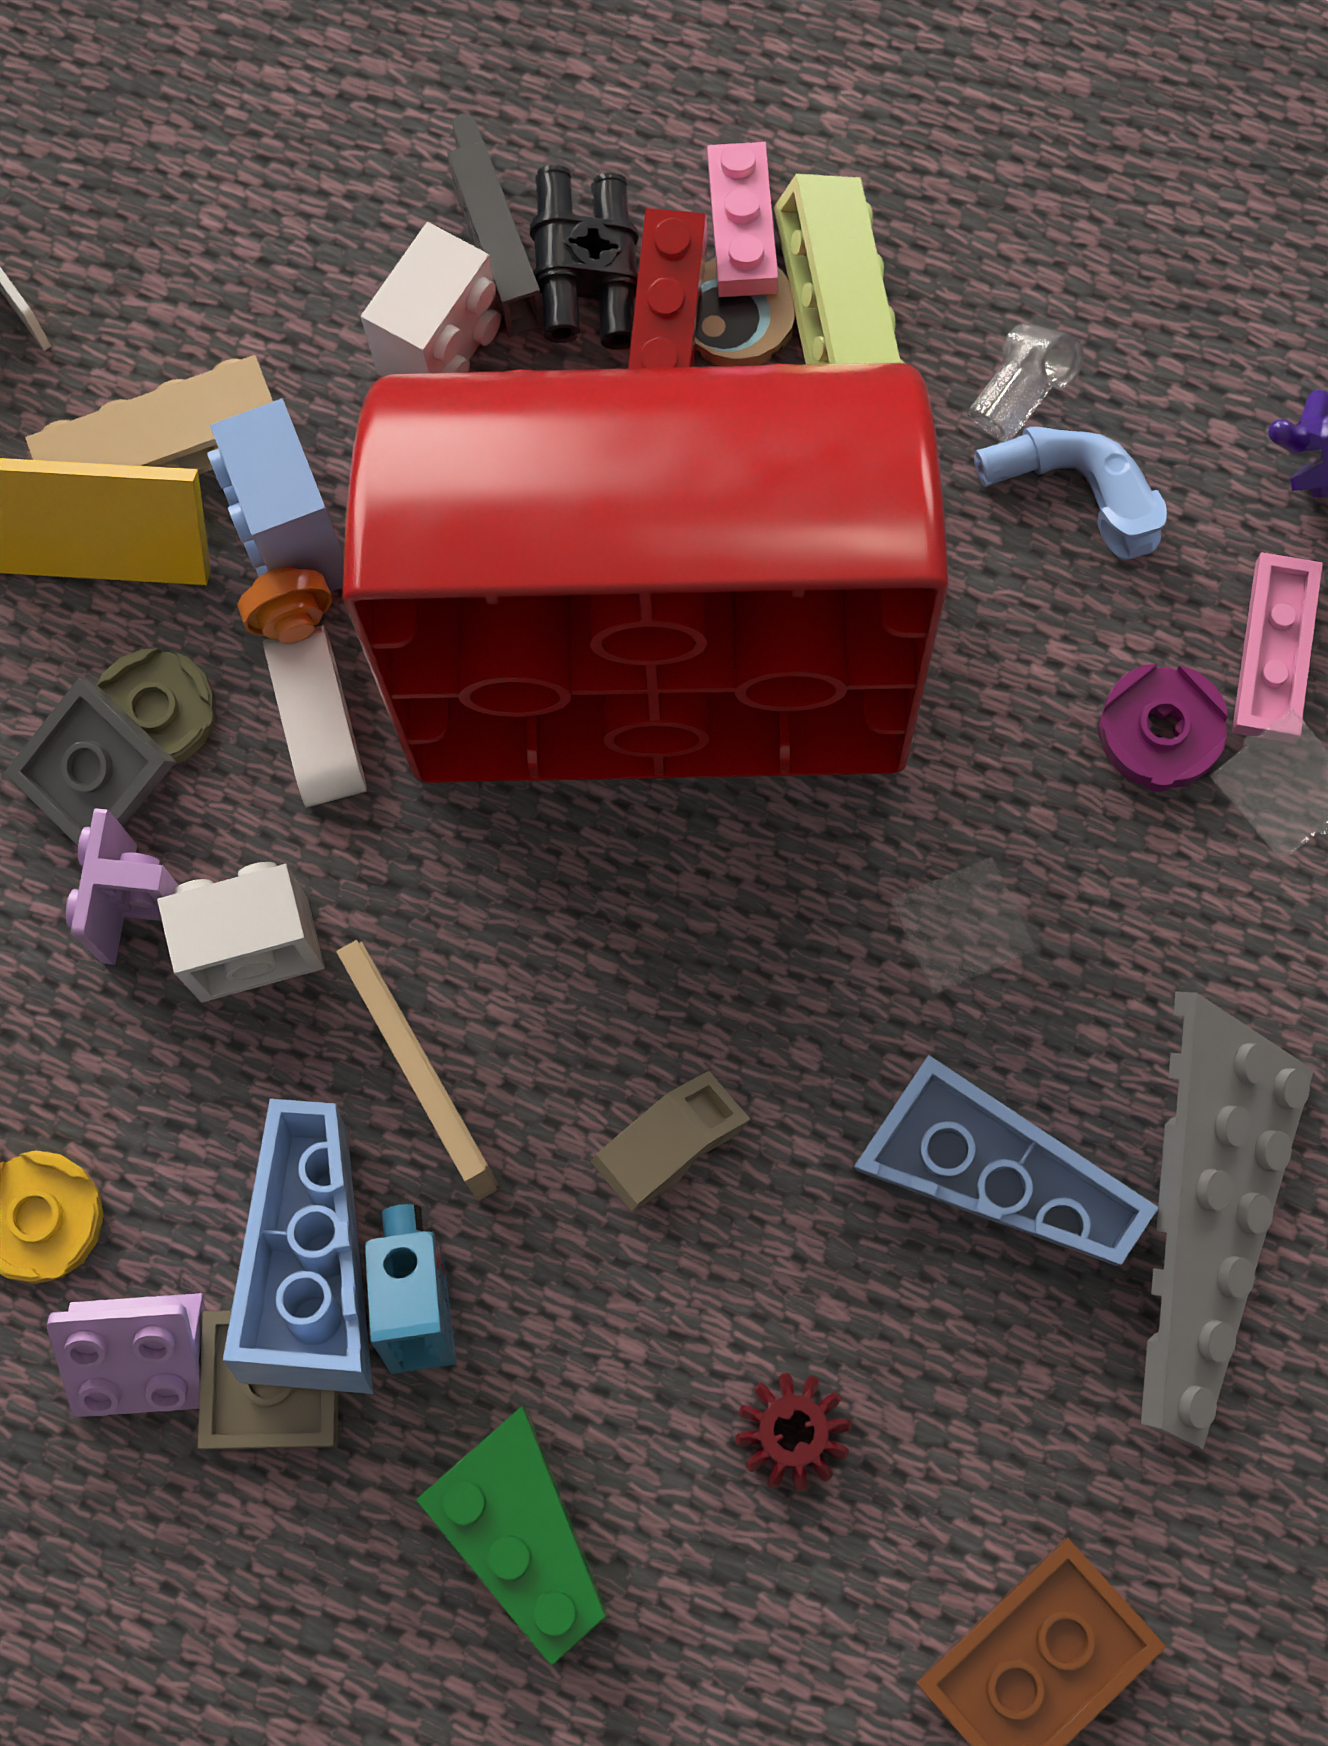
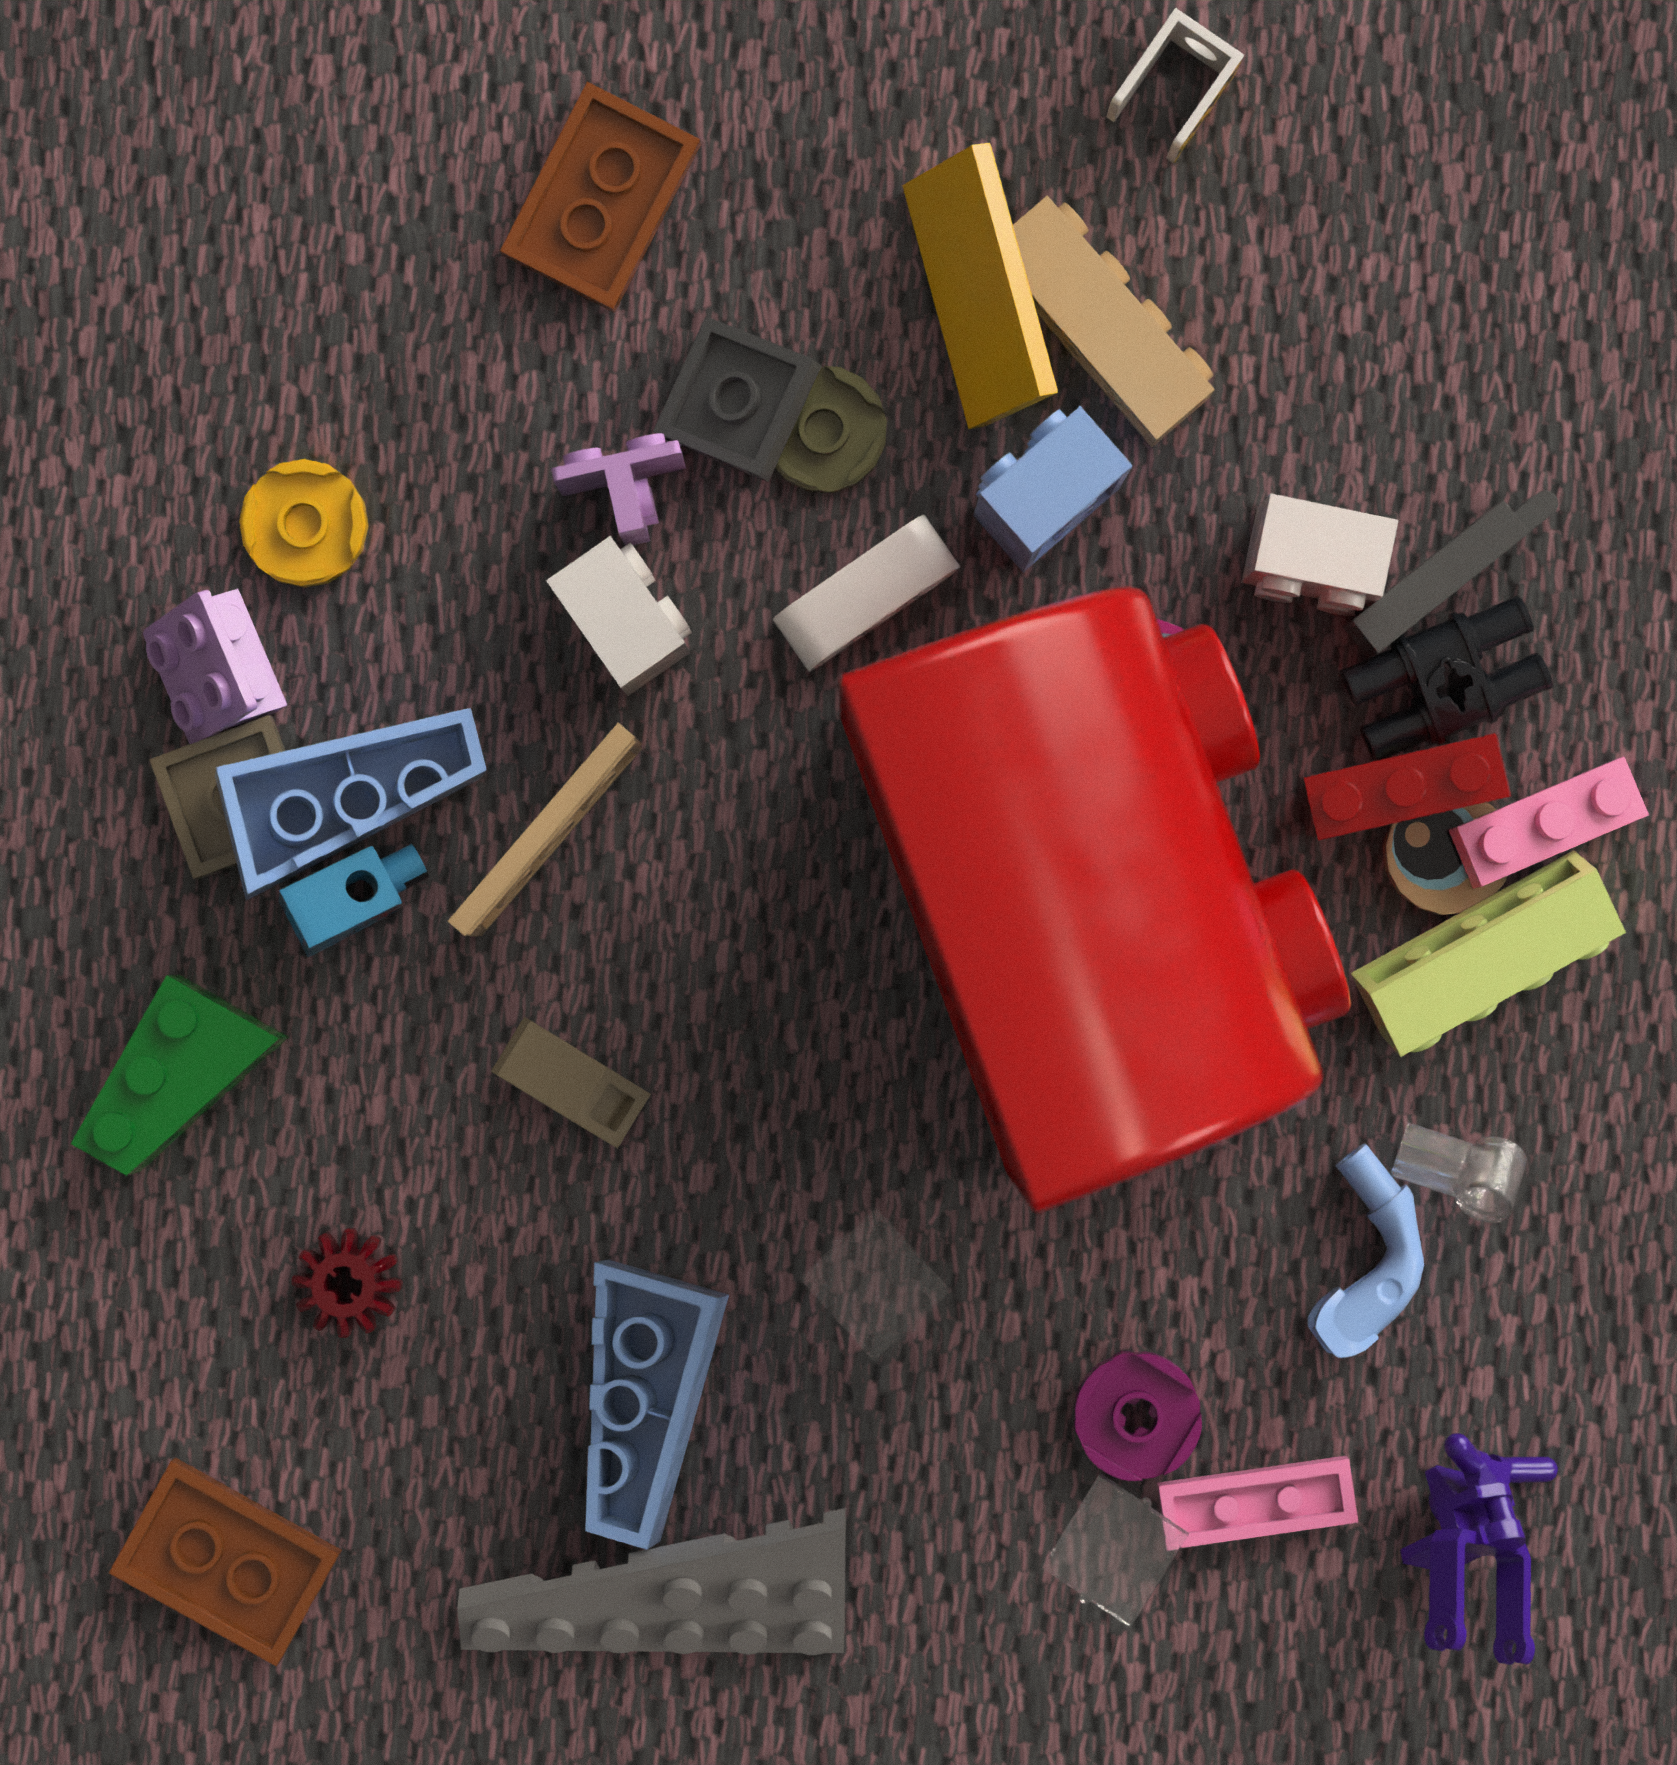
camera: 70 degrees right, 15 degrees up
(285, 604) = (955, 529): orange plate -> none

